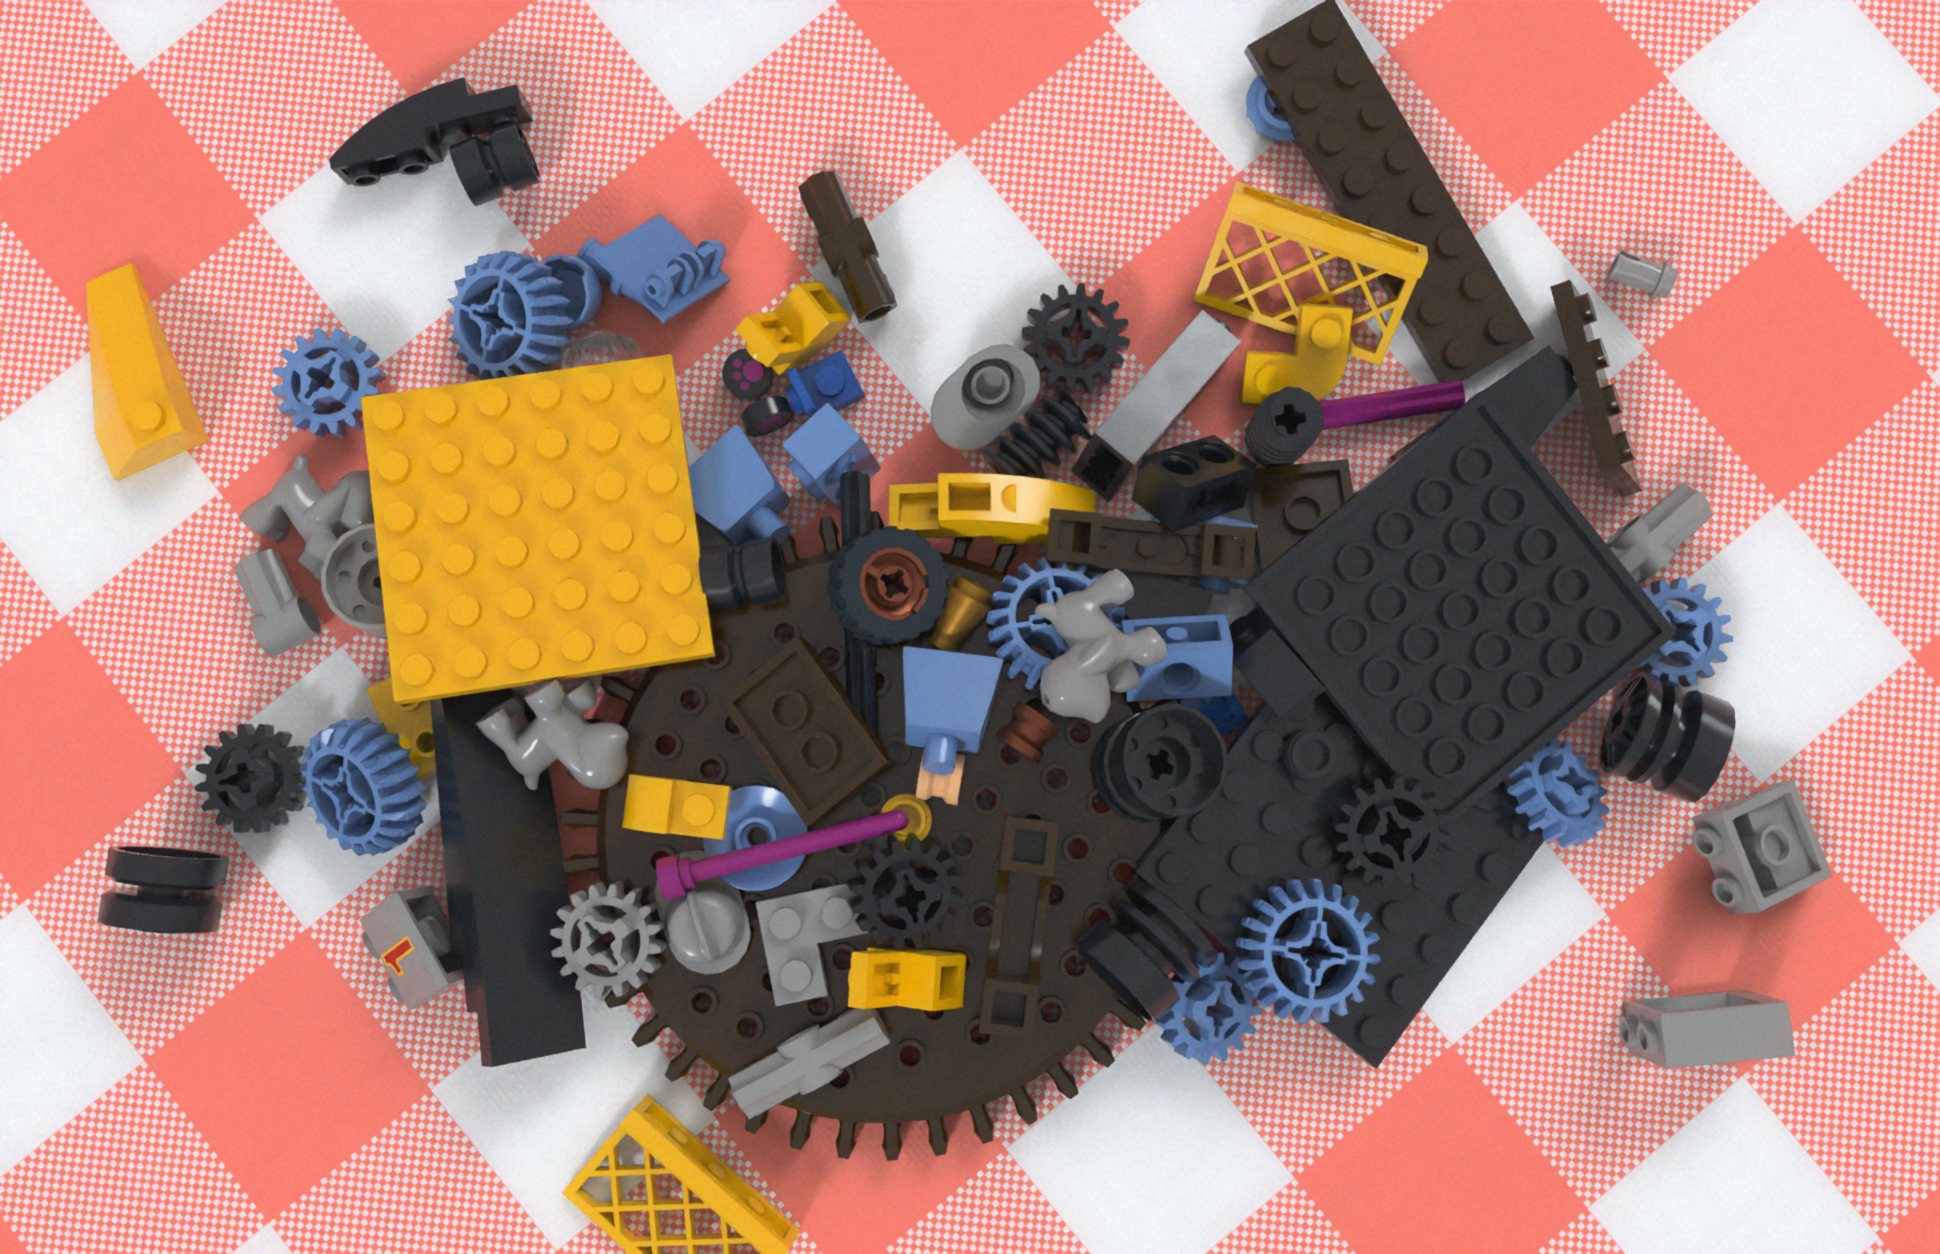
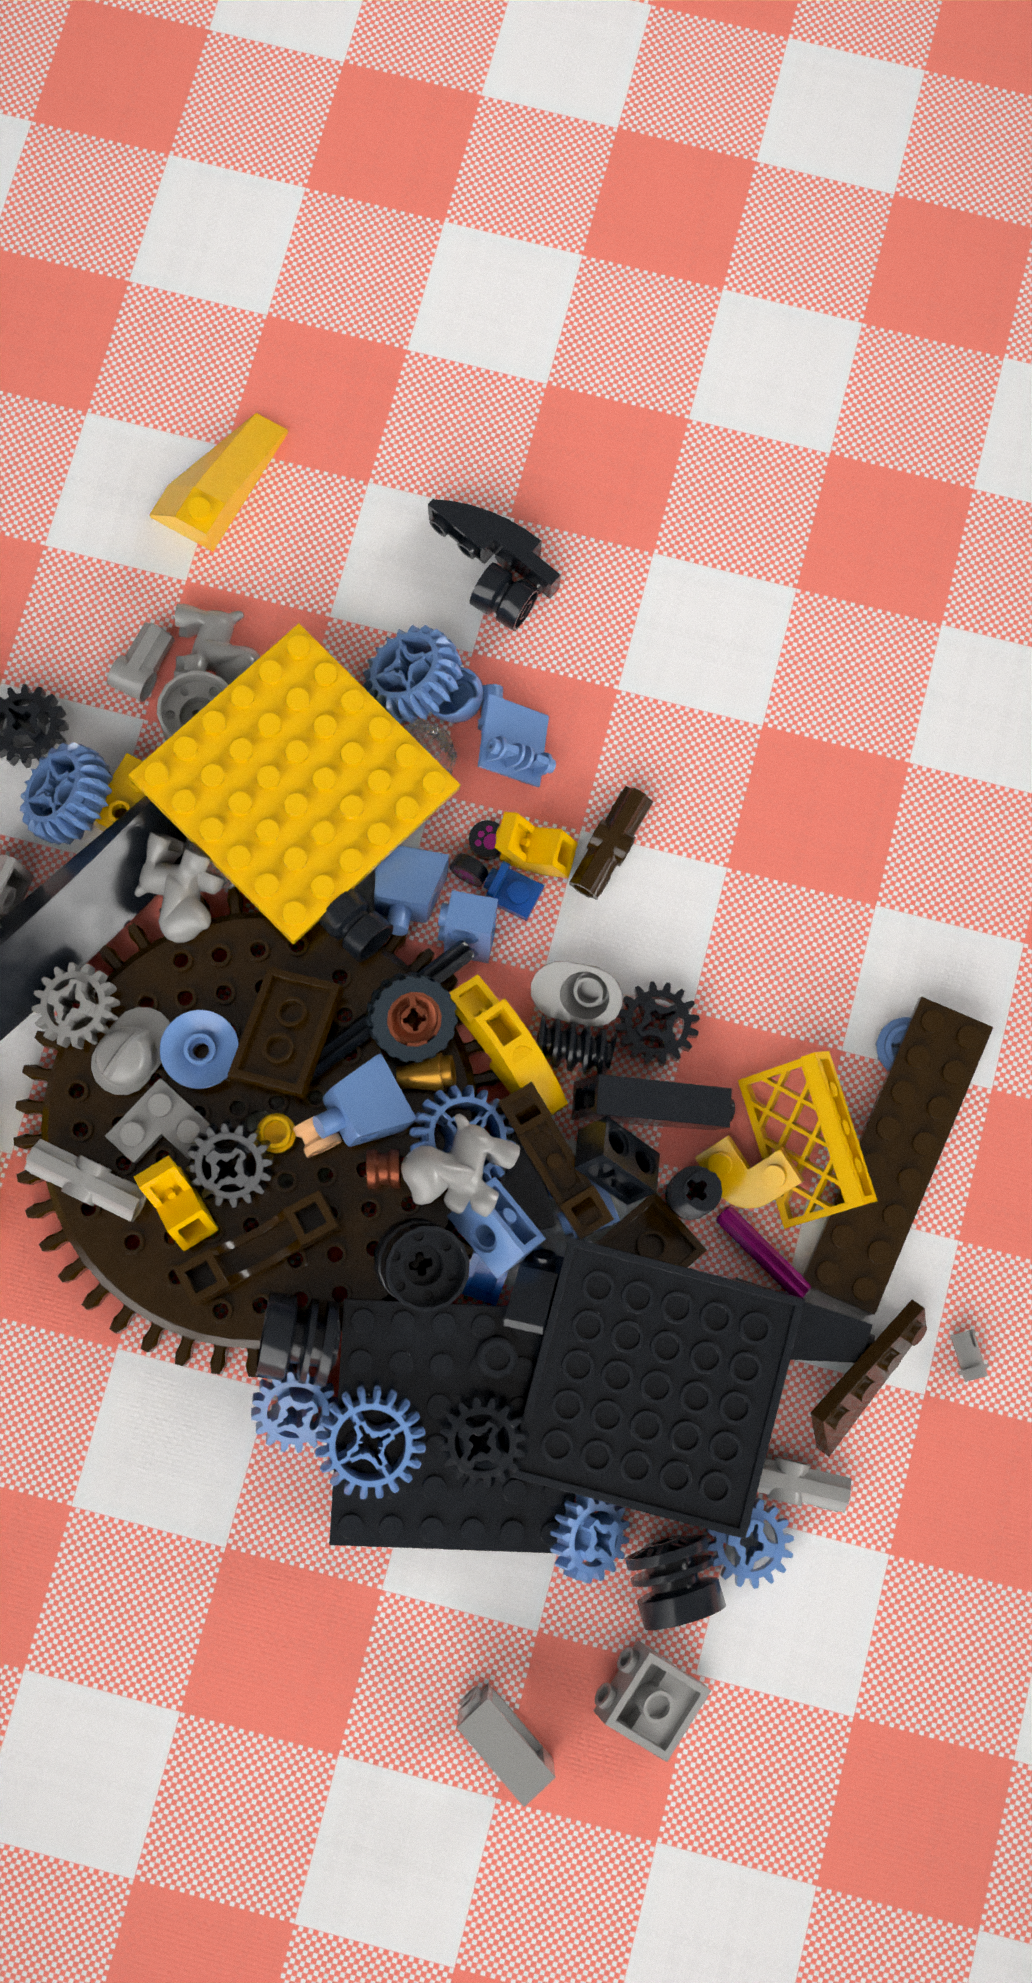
camera: 45 degrees right, 5 degrees down
(315, 402) = (293, 583): medium blue gear -> none
(676, 807) = (184, 987): yellow brick -> none
(679, 875) = (143, 1018): magenta piece -> none

